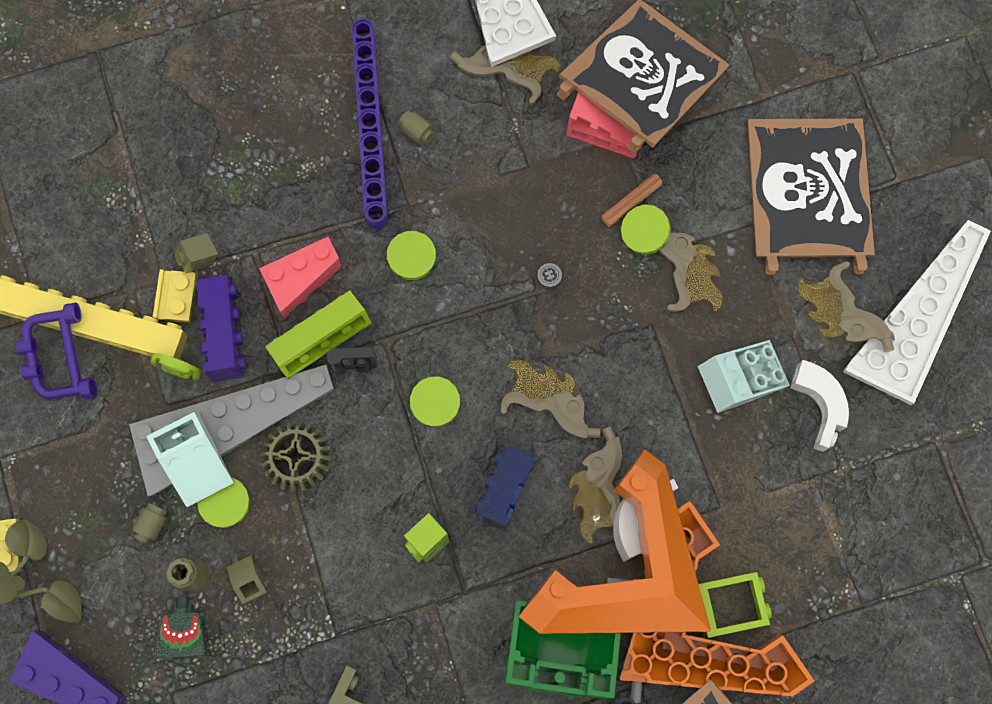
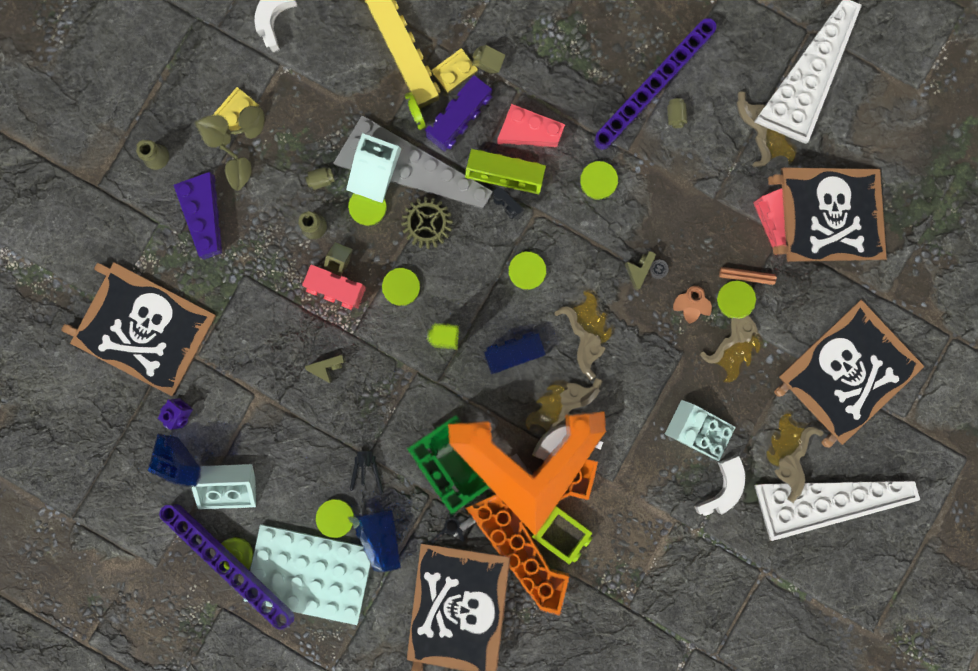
camera: 50 degrees right, 10 degrees up
(33, 370) = (389, 25): dark purple bar -> none
(182, 632) = (280, 251): clear green torso -> none
(270, 610) = (333, 287): none -> coral wedge
(334, 541) = (401, 287): none -> lime tile
(537, 298) = (638, 274): none -> olive slope
(615, 277) = (692, 307): none -> nougat plate

